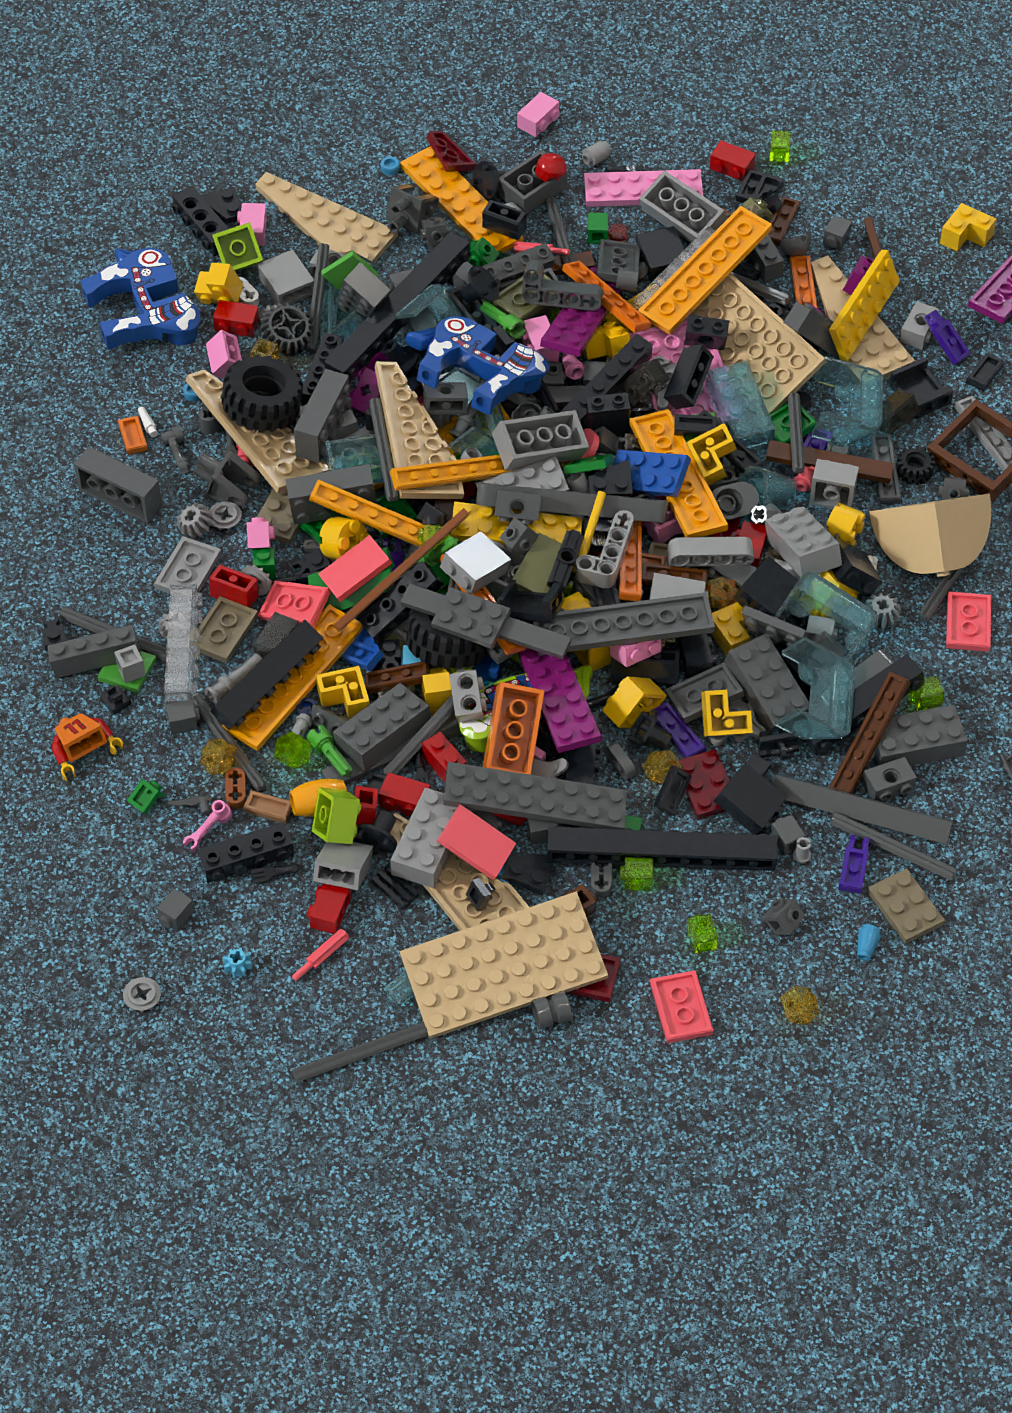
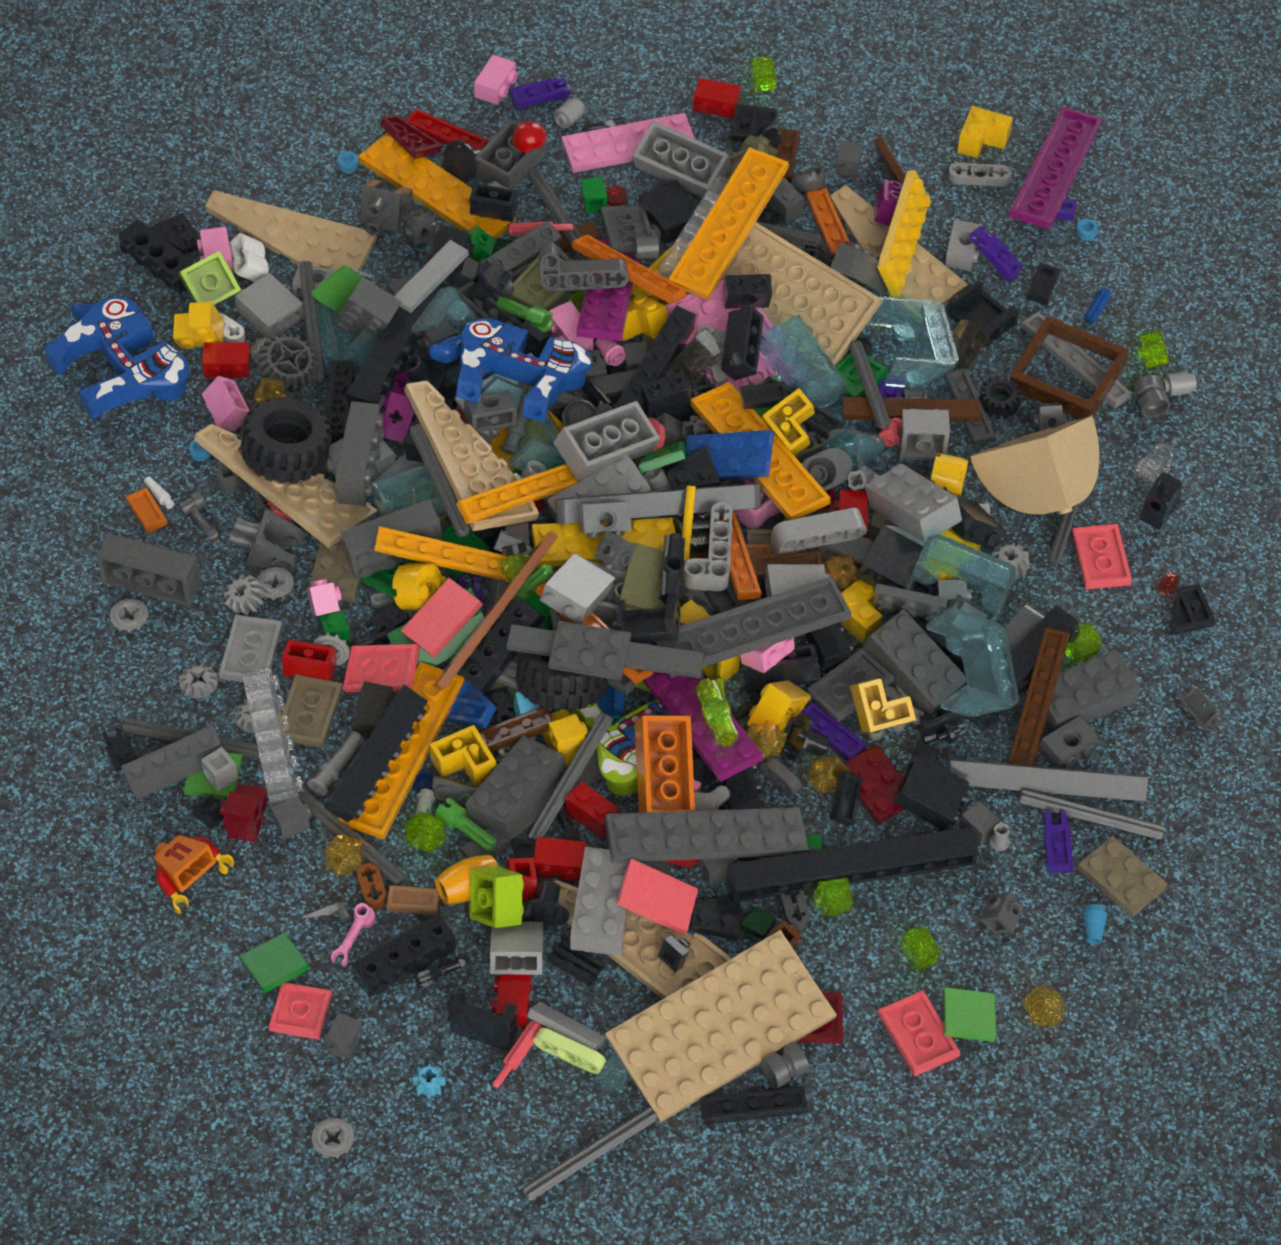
camera: 15 degrees left, 0 degrees up
(98, 514) = (133, 607): none -> light grey gear
(133, 593) = (198, 689): none -> light grey gear
(133, 837) = (274, 962): none -> green tile
(142, 704) = (244, 812): none -> dark red brick
(145, 795) = (275, 913): green bracket -> none
(145, 882) = (300, 1010): none -> coral tile
(279, 233) = (248, 257): none -> white brick
(295, 924) = (482, 1024): none -> black panel
(366, 961) = (569, 1050): none -> yellowish green beam
(369, 940) = (566, 1026): none -> light grey tile
(424, 272) = (431, 276): none -> light grey tile
(462, 696) = (601, 738): light grey brick -> none
(481, 152) = (444, 131): none -> red tile
(516, 1040) = (753, 1105): none -> black tile
(564, 882) = (758, 922): none -> dark green tile
(569, 692) = (716, 712): none -> clear neon green piece
(576, 132) = (539, 92): none -> dark purple hinge
(616, 727) = (767, 738): none -> clear yellow brick
(730, 999) = (969, 1014): none -> bright green tile
(938, 266) = (965, 168): none -> light grey beam

